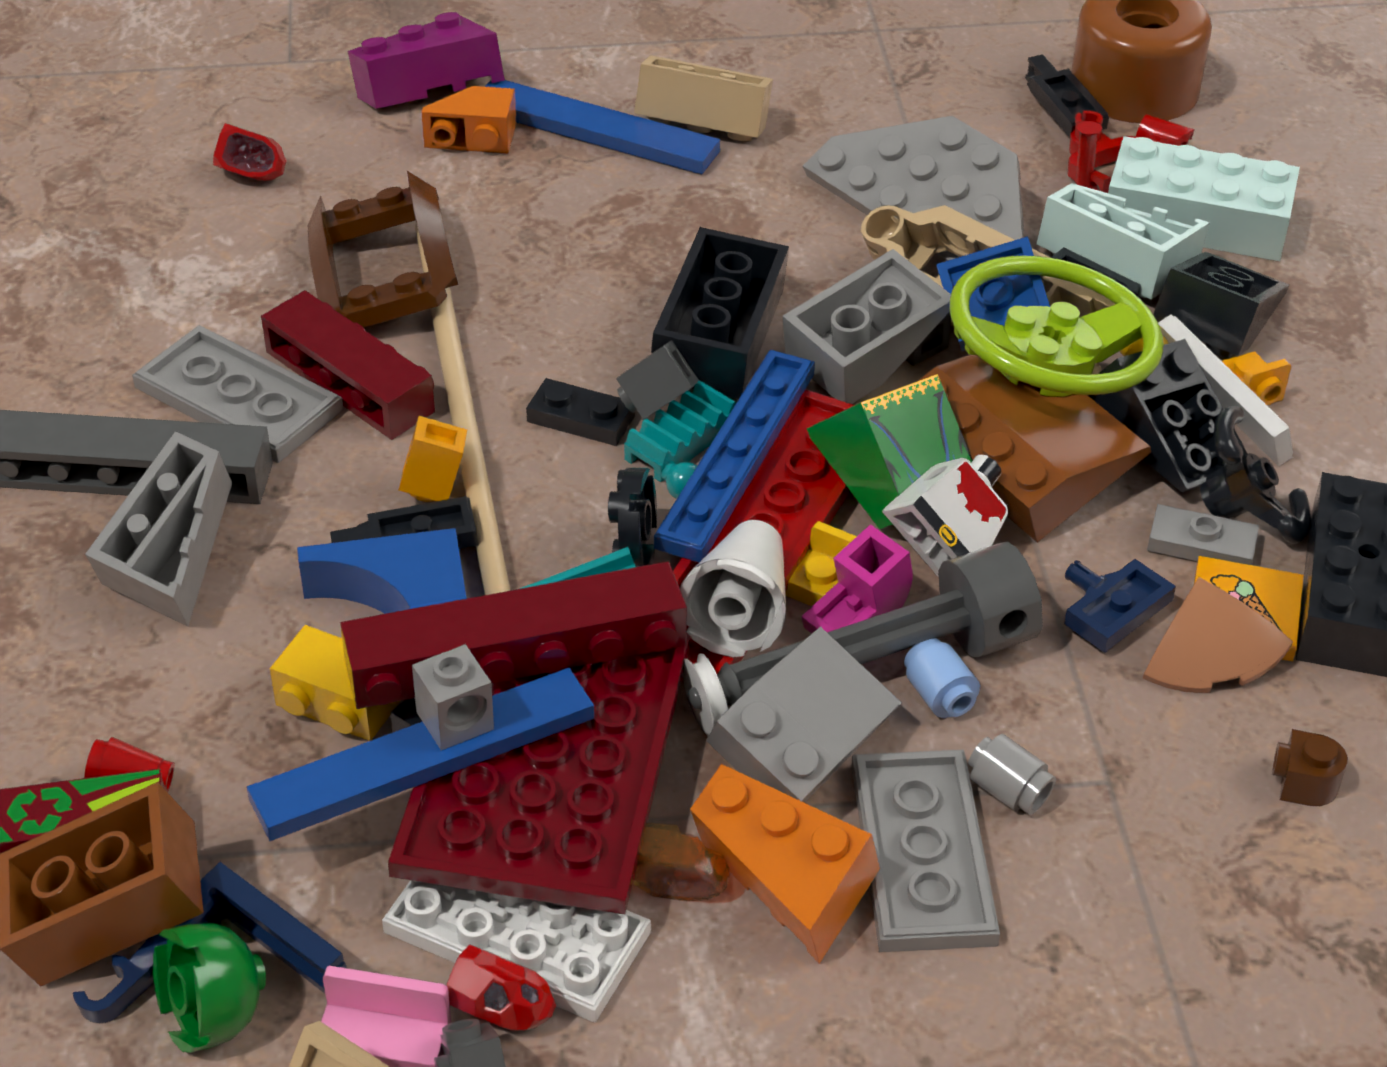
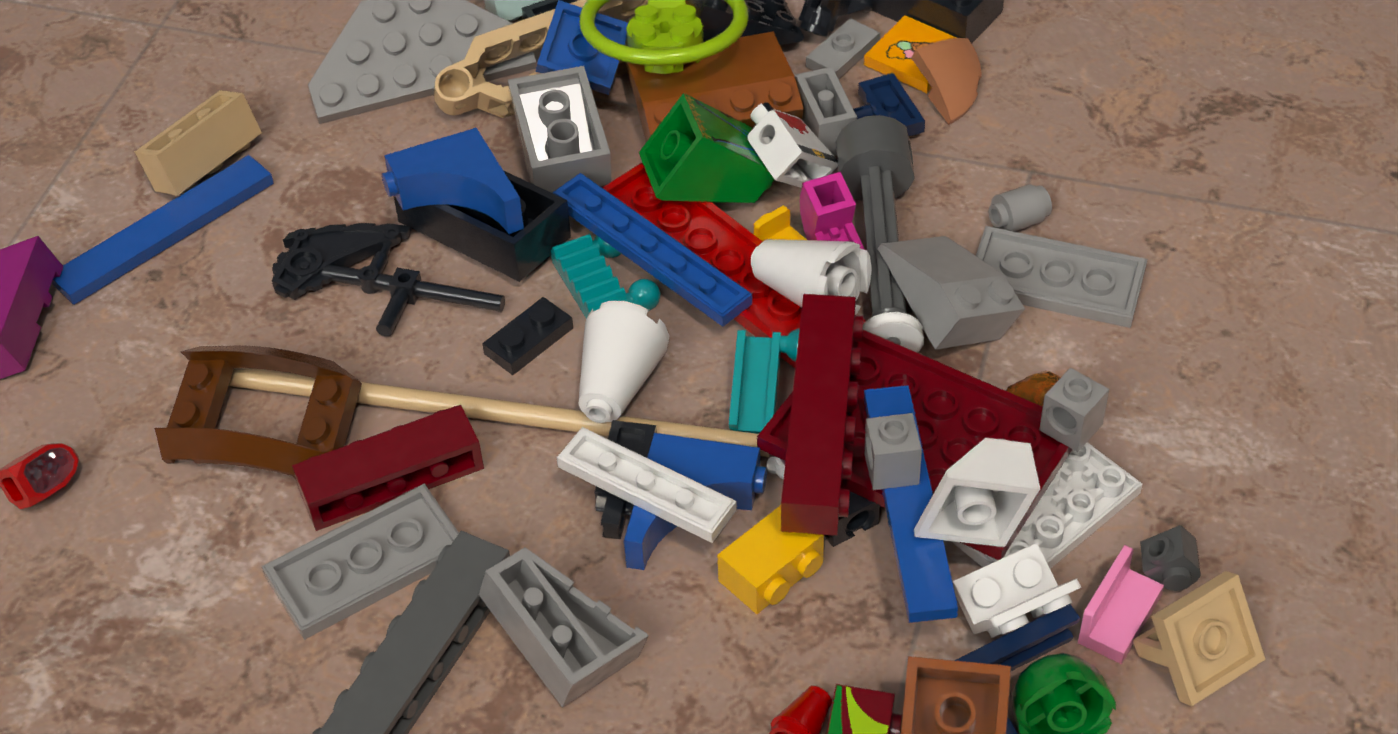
camera: 65 degrees left, 5 degrees up
(349, 903) = (1007, 589): none -> white bracket
(372, 539) = (647, 484): none -> white tile
(410, 782) = (982, 495): none -> white slope
(432, 460) = (553, 425): light orange brick -> none
(471, 120) = (110, 299): orange slope -> none
(499, 990) = (1113, 526): red rock -> none
(539, 470) = (617, 357): none -> white cone
(614, 233) = (328, 252): none -> black bar
(614, 865) = (1074, 409): none -> light grey brick
(635, 512) = (698, 322): black plate -> none
(655, 380) = (552, 266): dark grey brick -> none
(724, 254) = (454, 172): none -> blue arch
(788, 854) = (1064, 331): orange wedge -> none
(941, 678) = (923, 213): light blue brick -> none
(1057, 531) = (824, 105): none -> light grey brick
(1309, 768) = (1068, 72): reddish brown plate -> none

